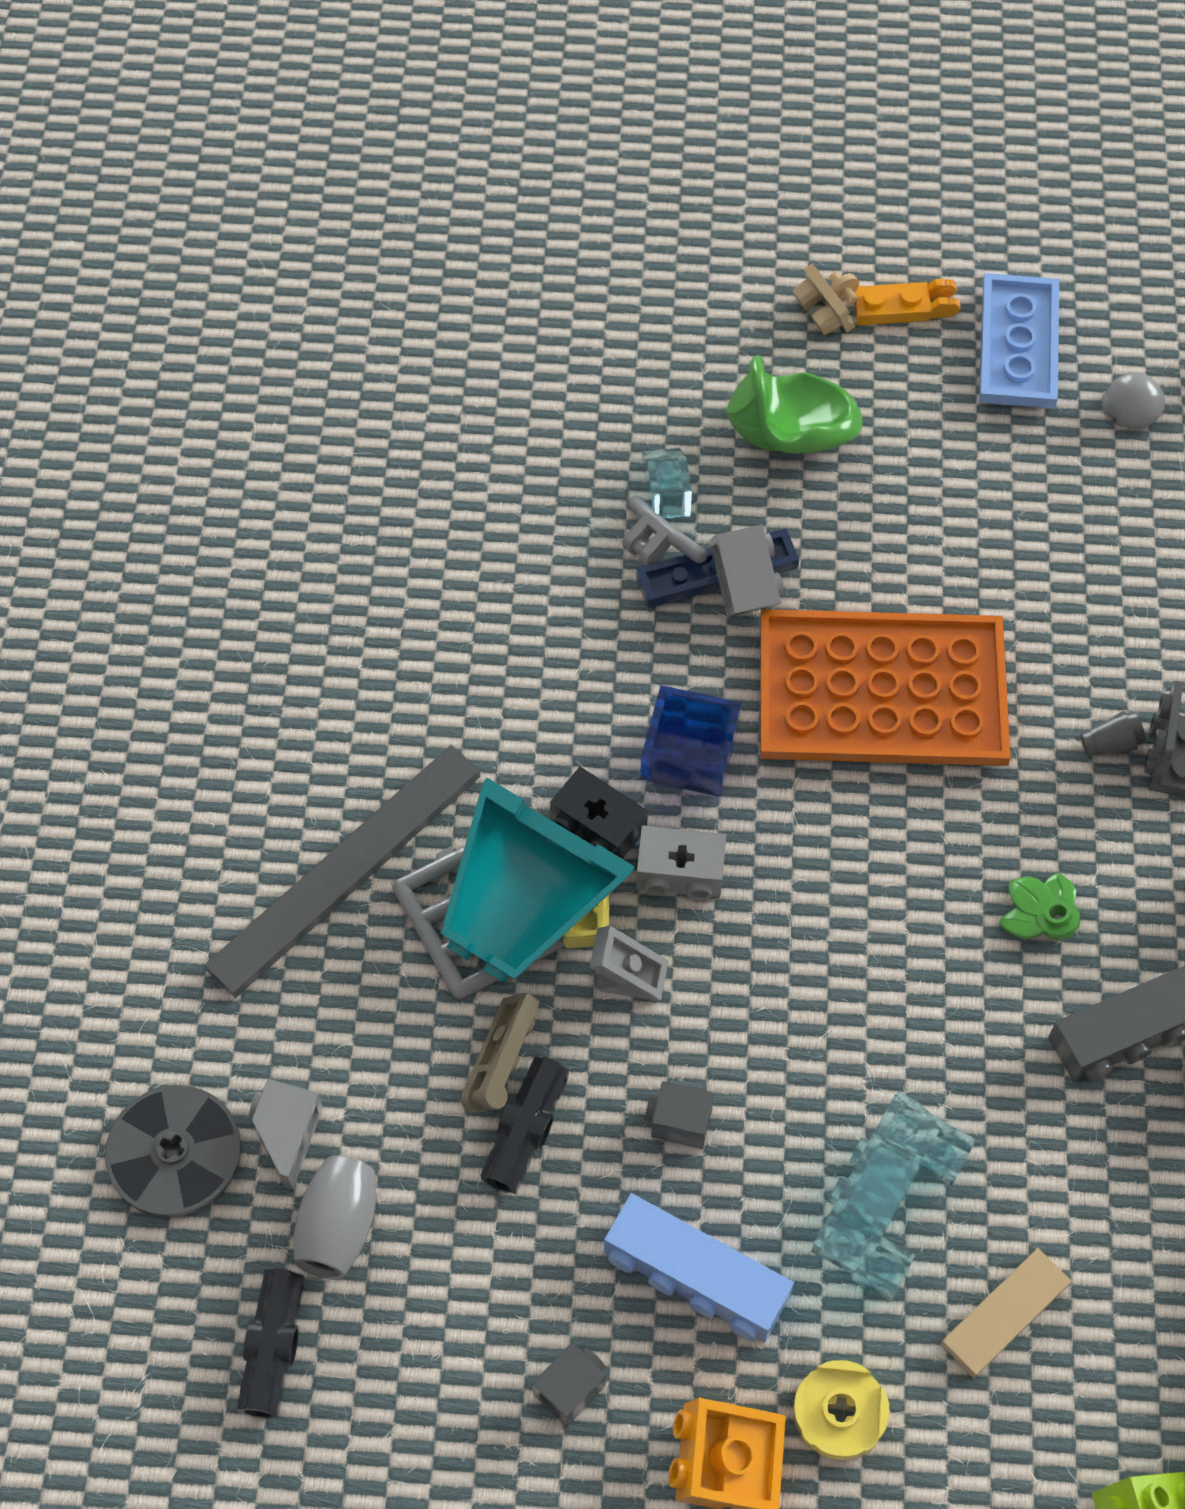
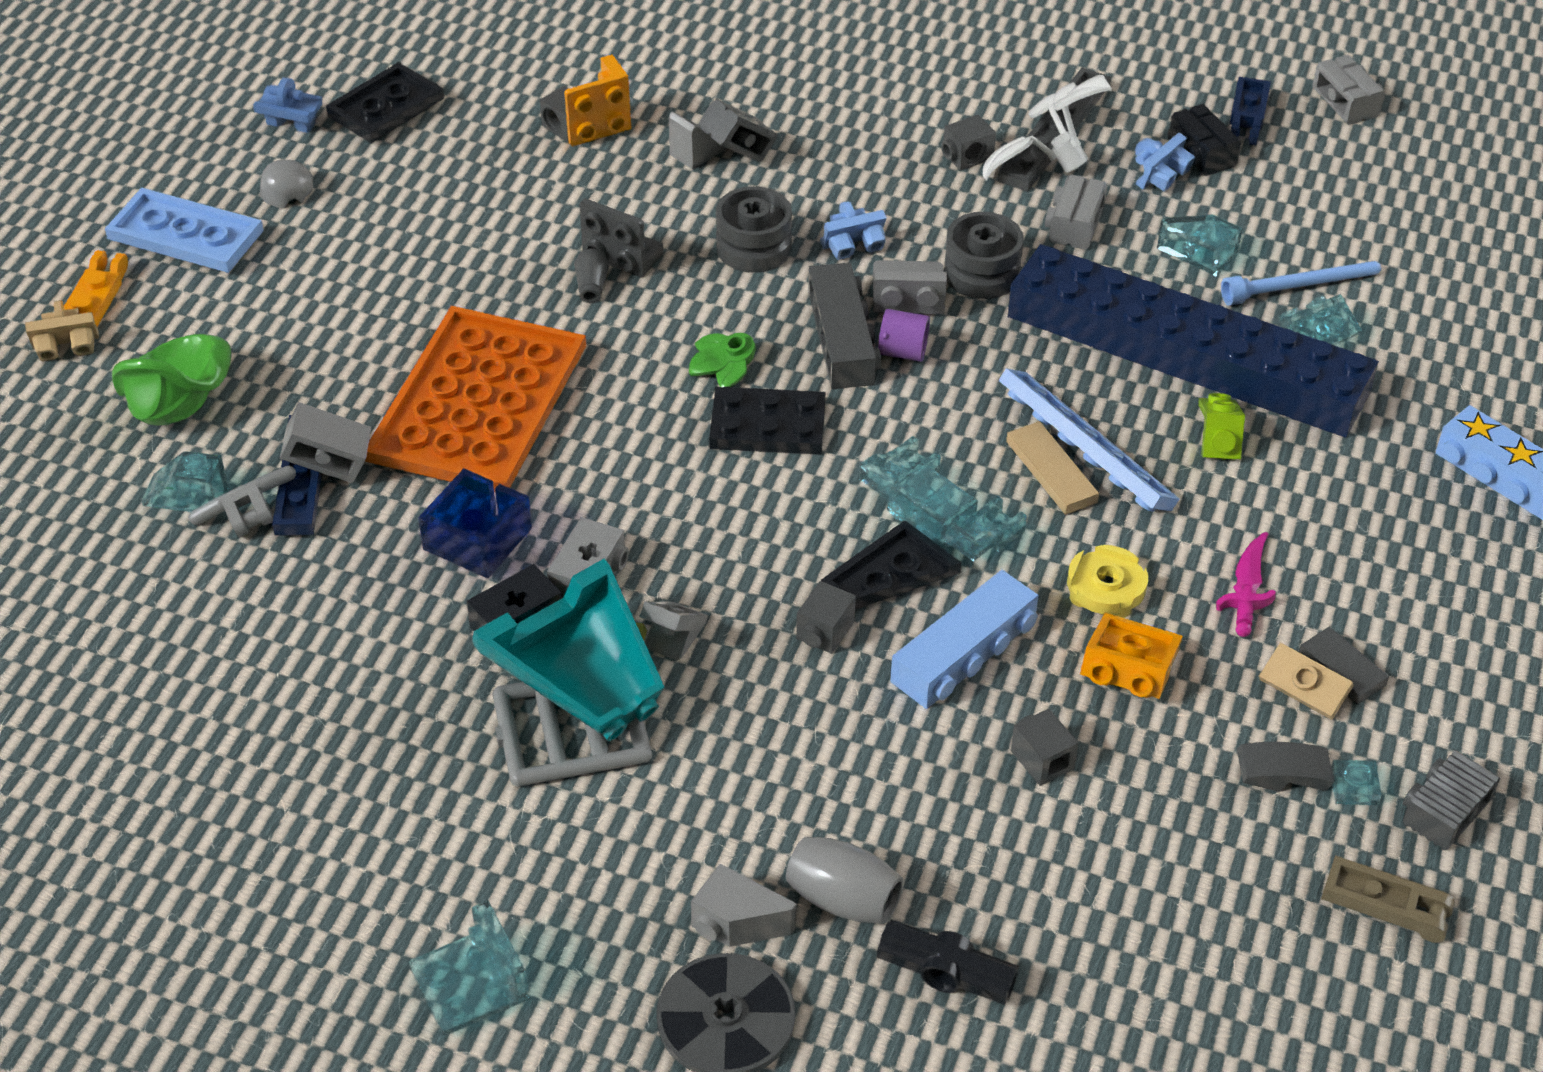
camera: 75 degrees left, 15 degrees down
(162, 917) = (471, 975): none -> clear light blue bracket
(342, 871) = (484, 823): dark grey tile -> none
(499, 1054) = (722, 728): dark tan plate -> none
(525, 1125) = (797, 728): black piece -> none
(778, 1163) = (893, 566): none -> black wing
(965, 982) = (767, 420): none -> black plate
(1057, 1345) = (1097, 448): none -> light blue plate
(1147, 1091) = (904, 335): none -> medium lavender piece

